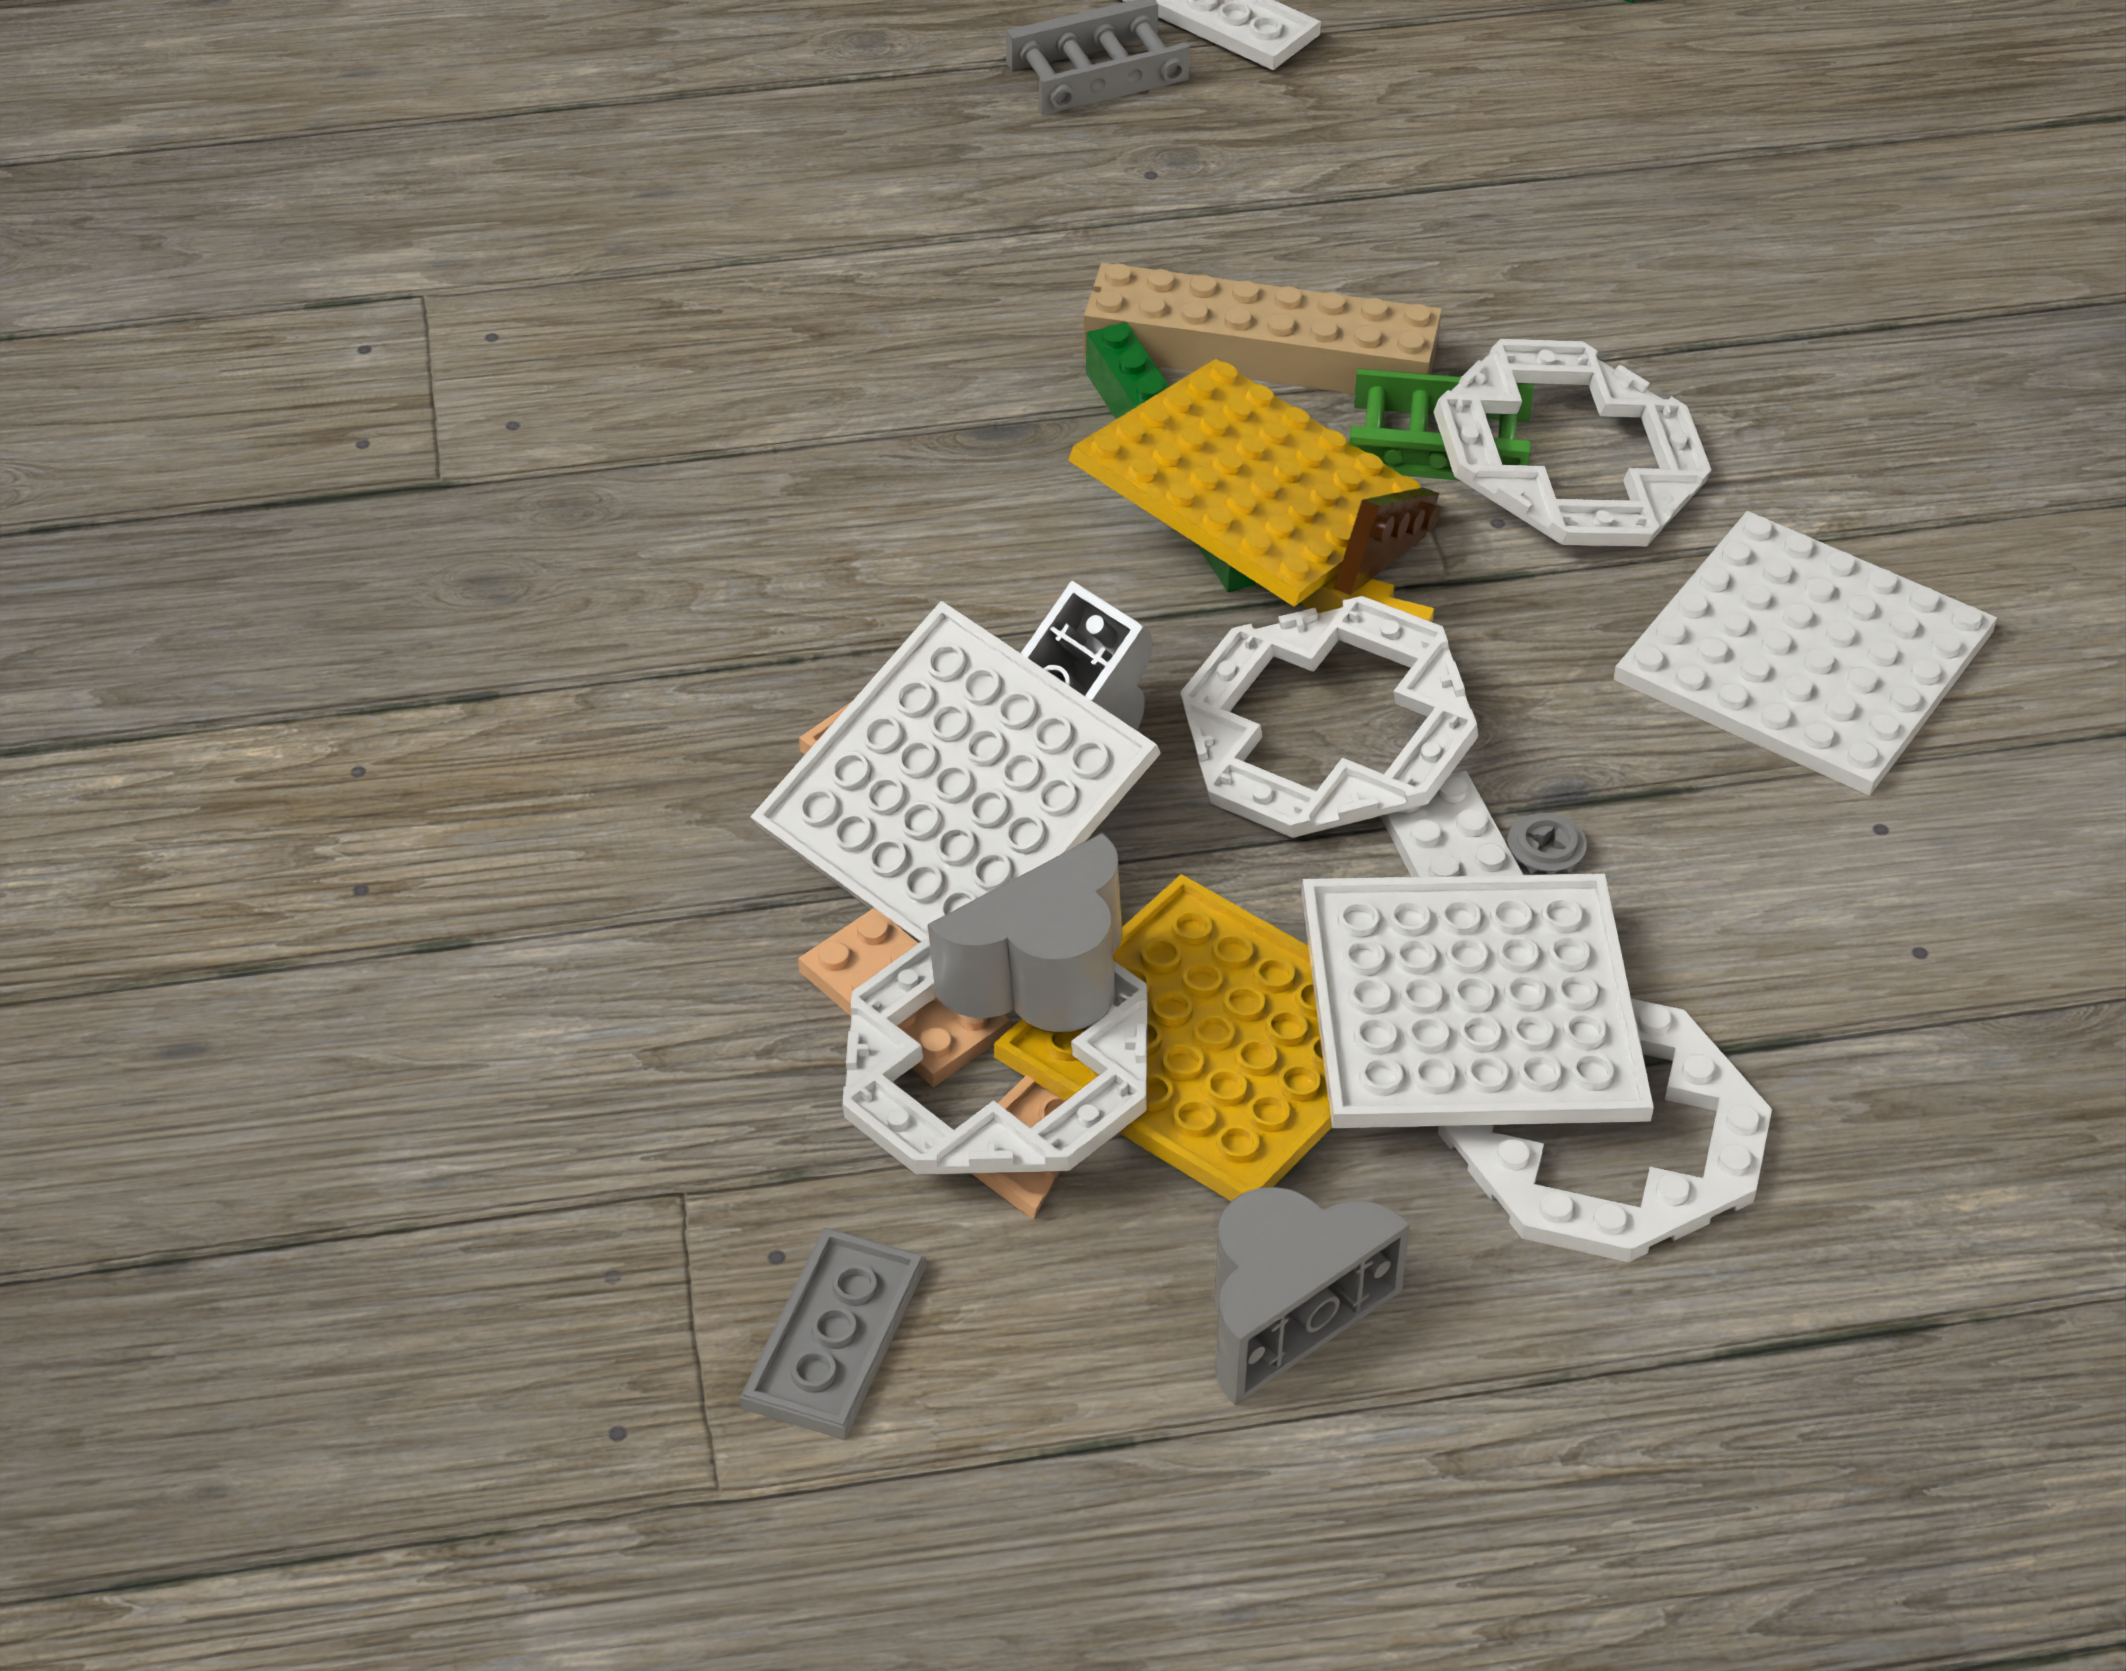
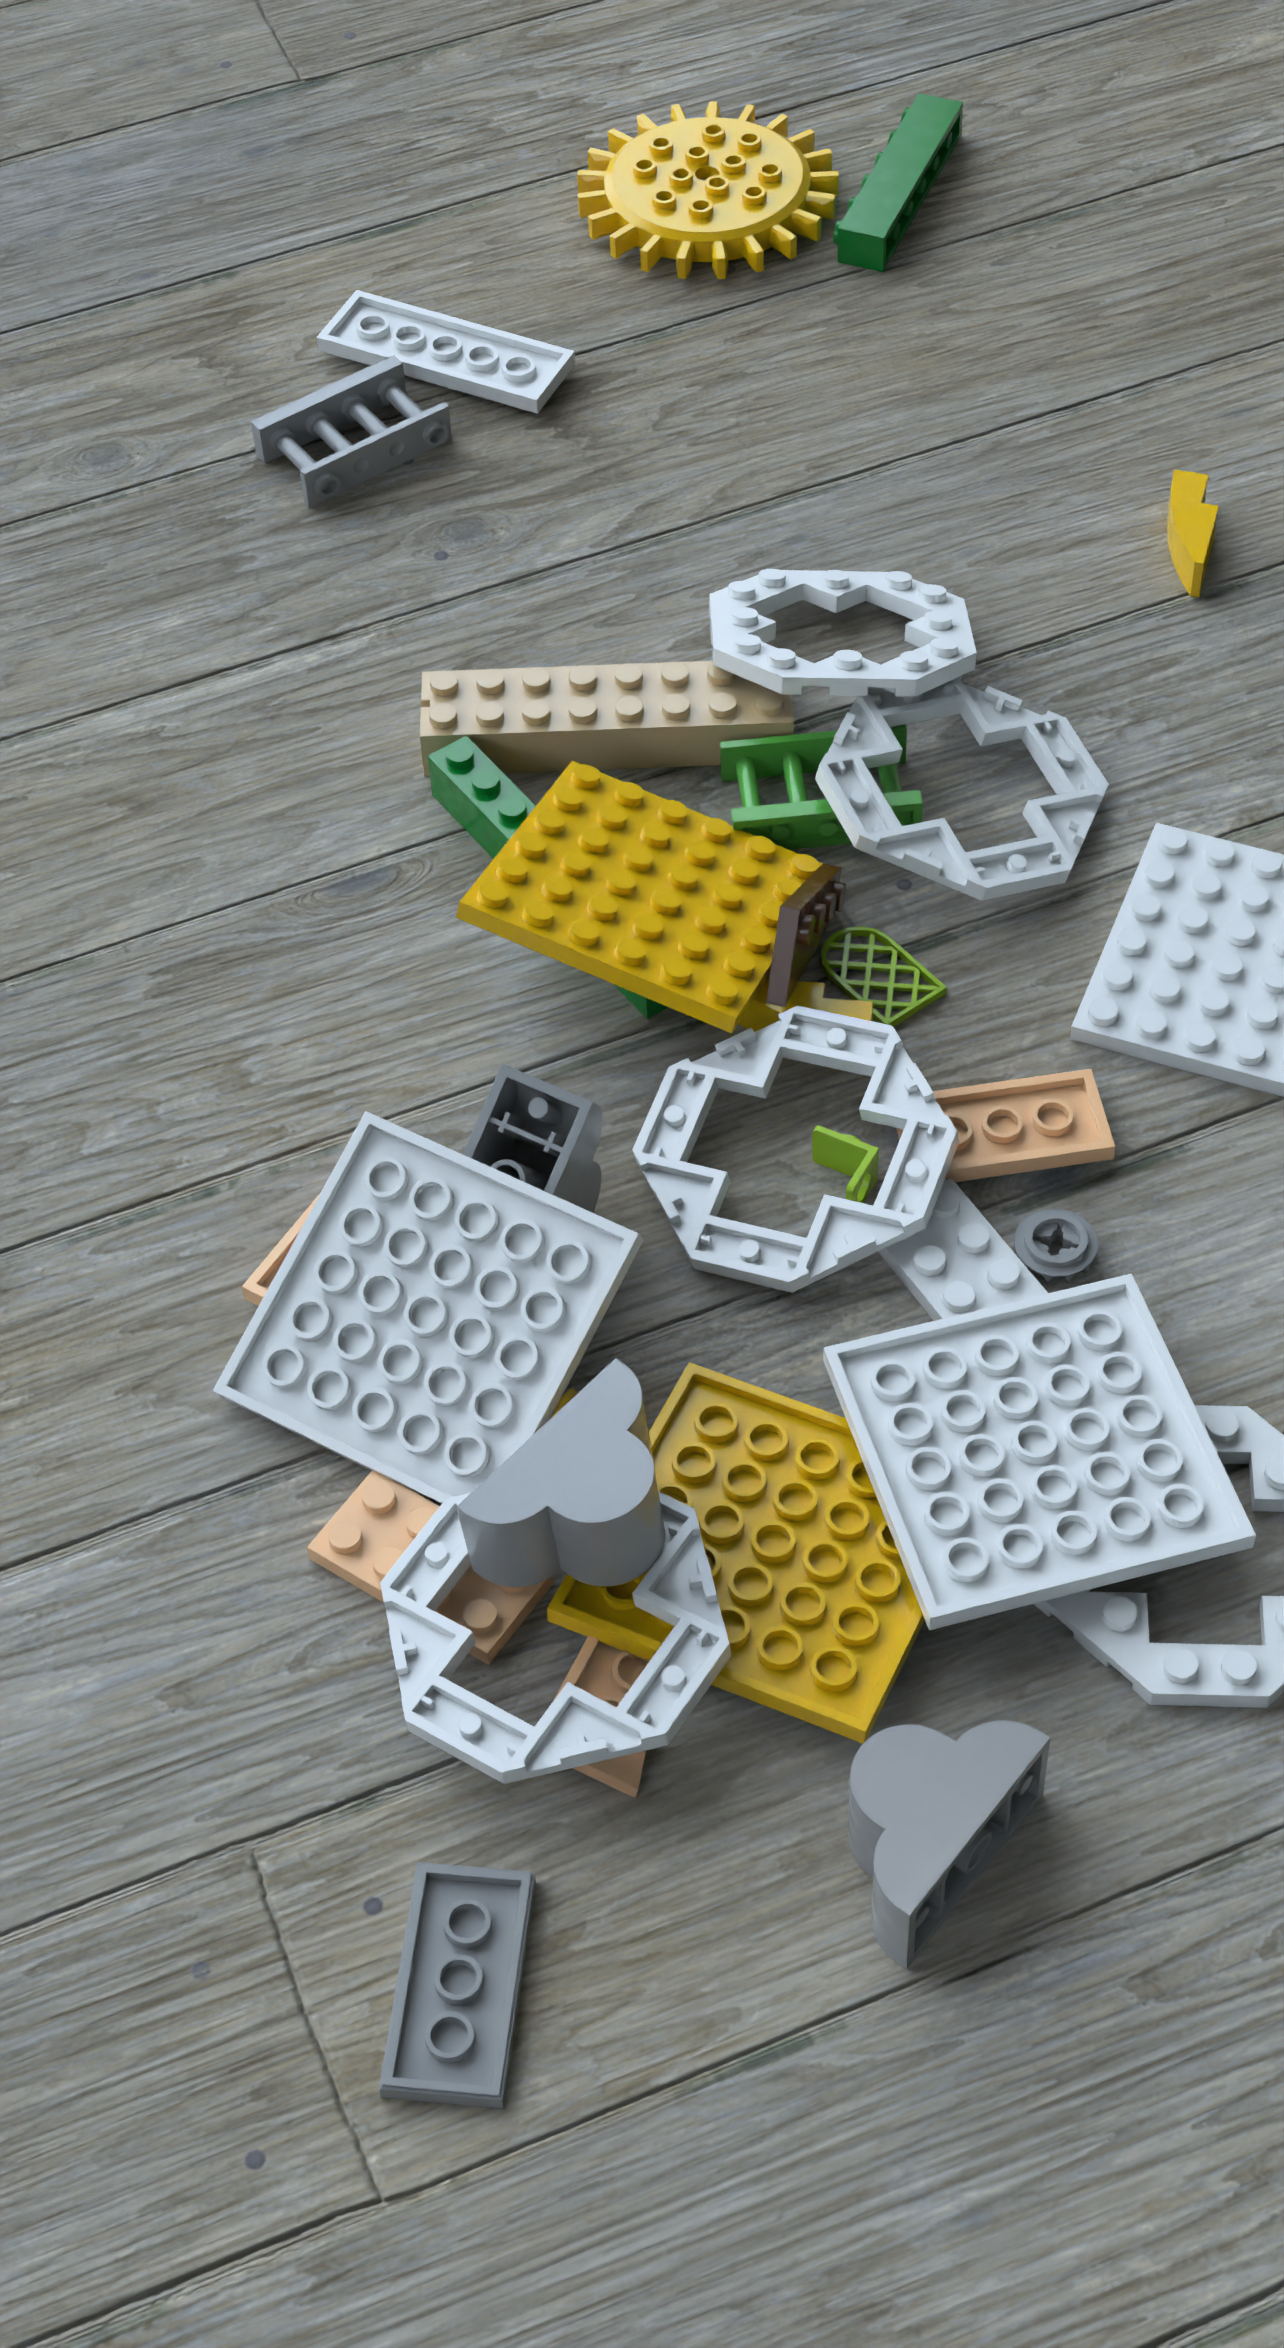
camera: 10 degrees left, 5 degrees up
(1374, 734) = (848, 1156): none -> lime bracket
(1468, 627) = (935, 989): none -> lime window
(1546, 740) = (1026, 1125): none -> light nougat plate
(1585, 312) = (938, 628): none -> white plate
(1856, 267) = (1190, 528): none -> yellow slope

